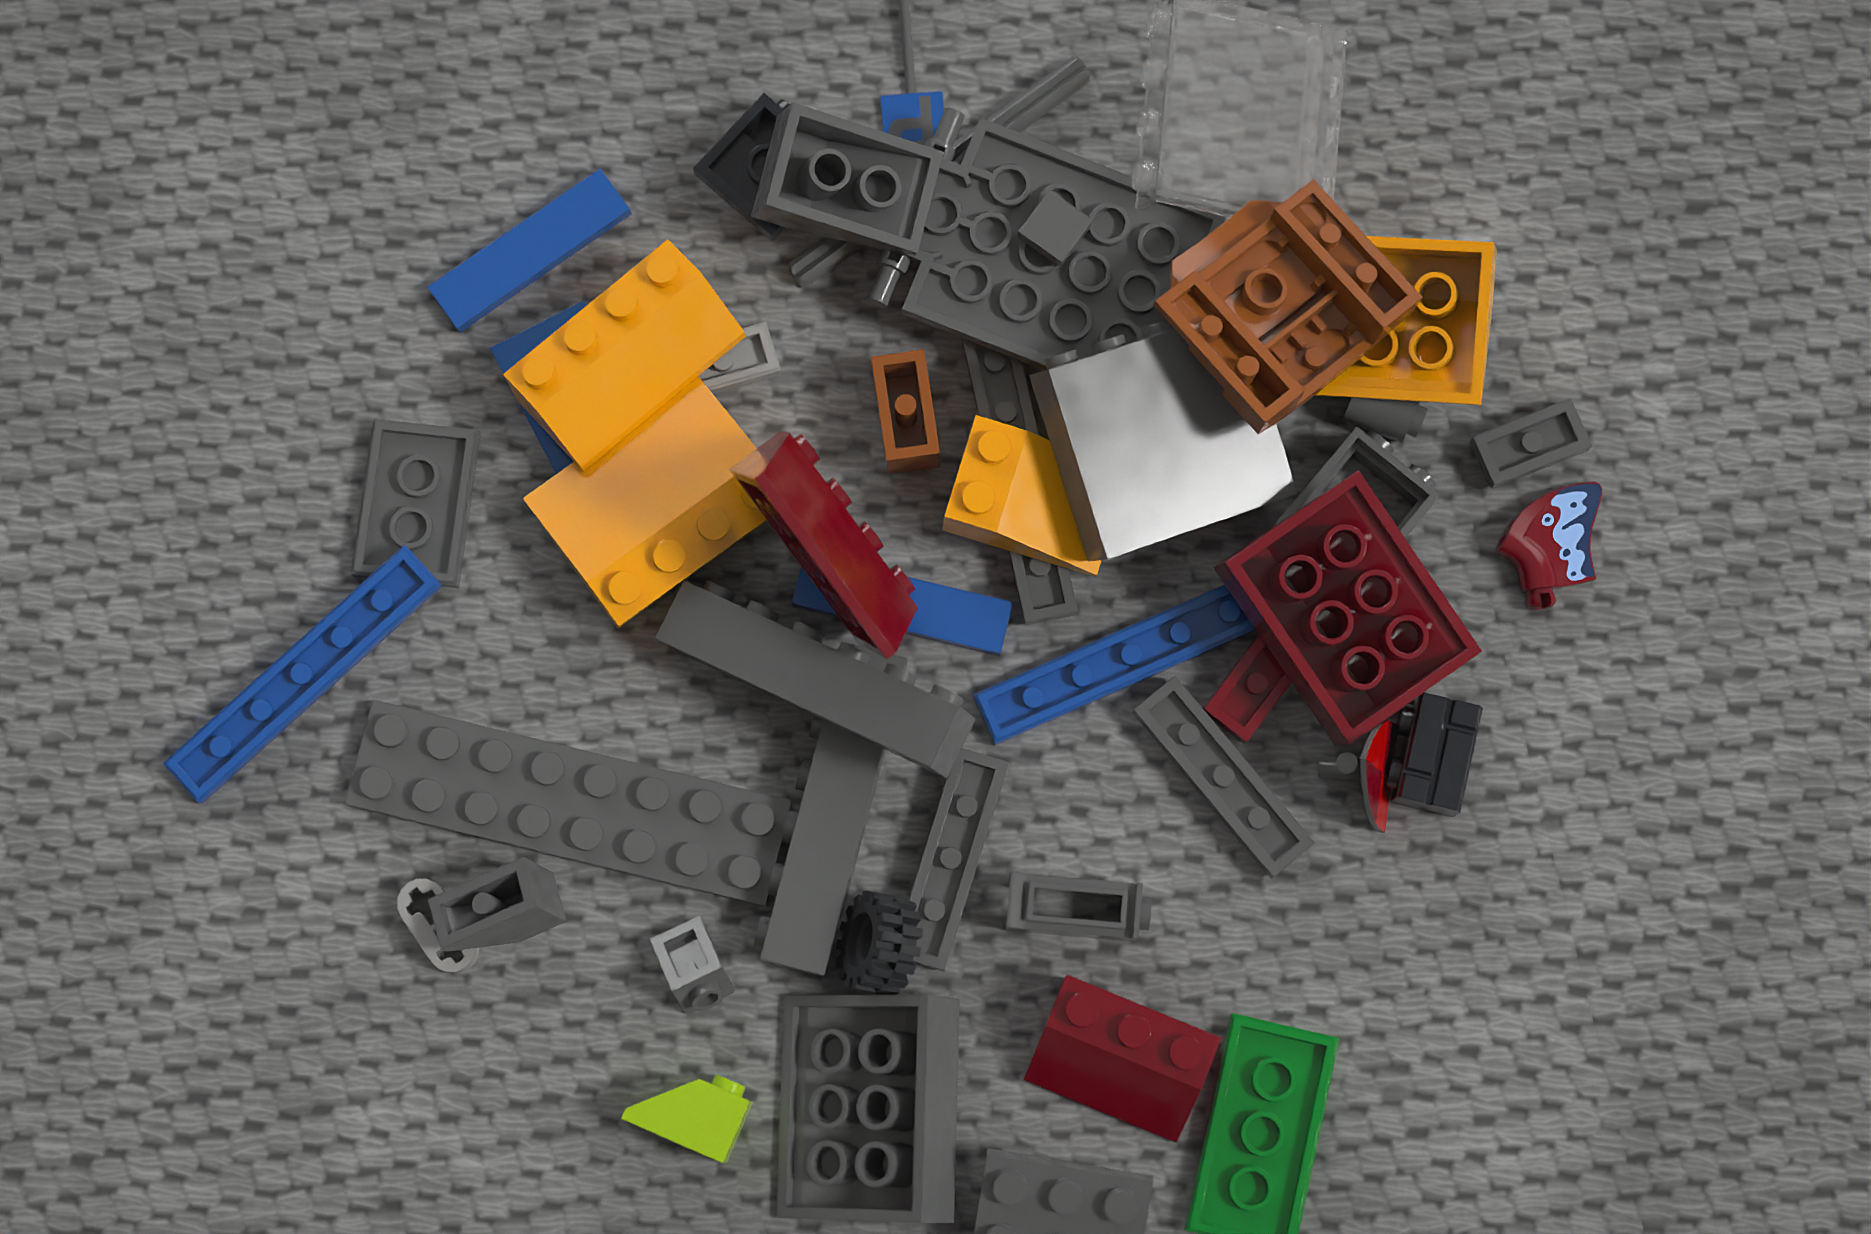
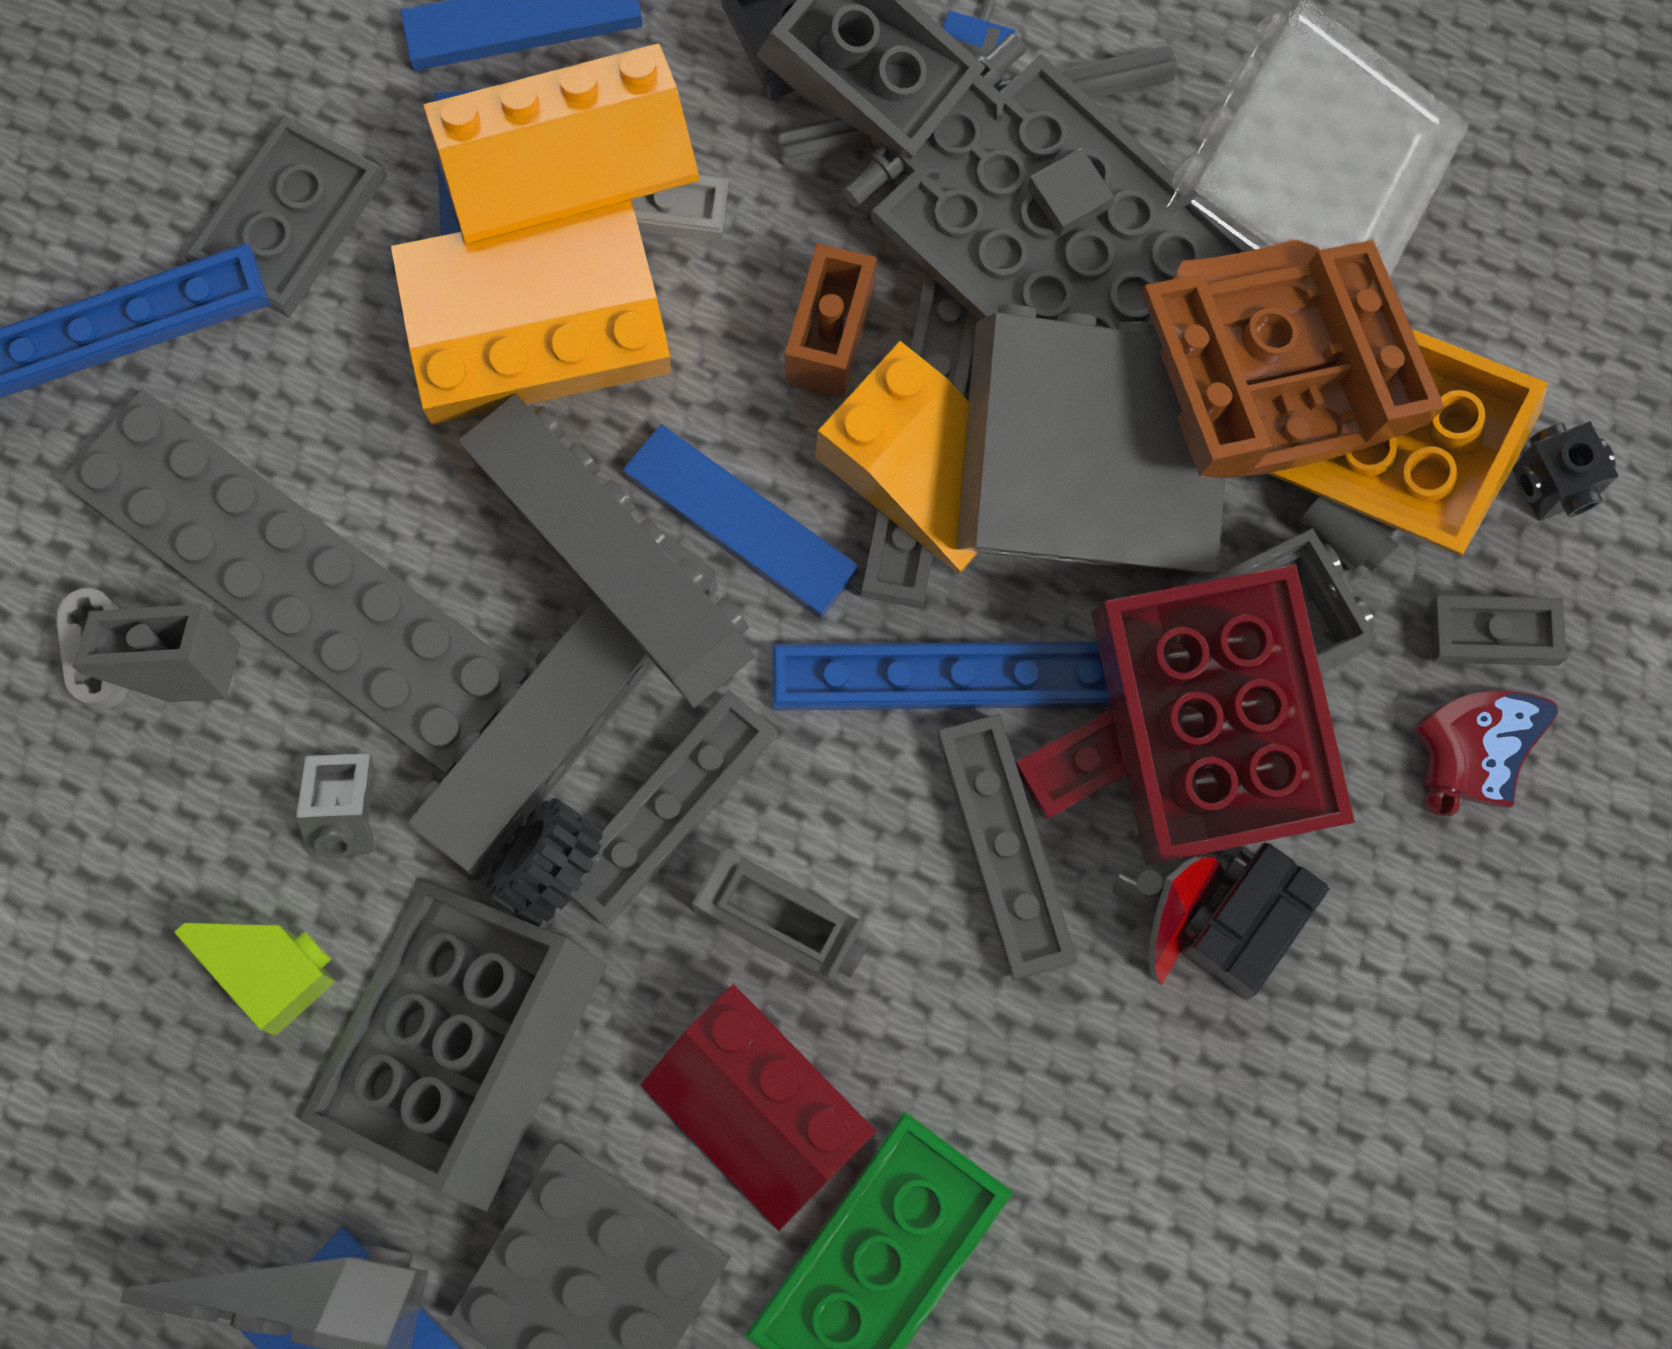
camera: 20 degrees right, 5 degrees down
(828, 542) = (680, 398): dark red slope -> none
(1521, 304) = (1565, 470): none -> black brick

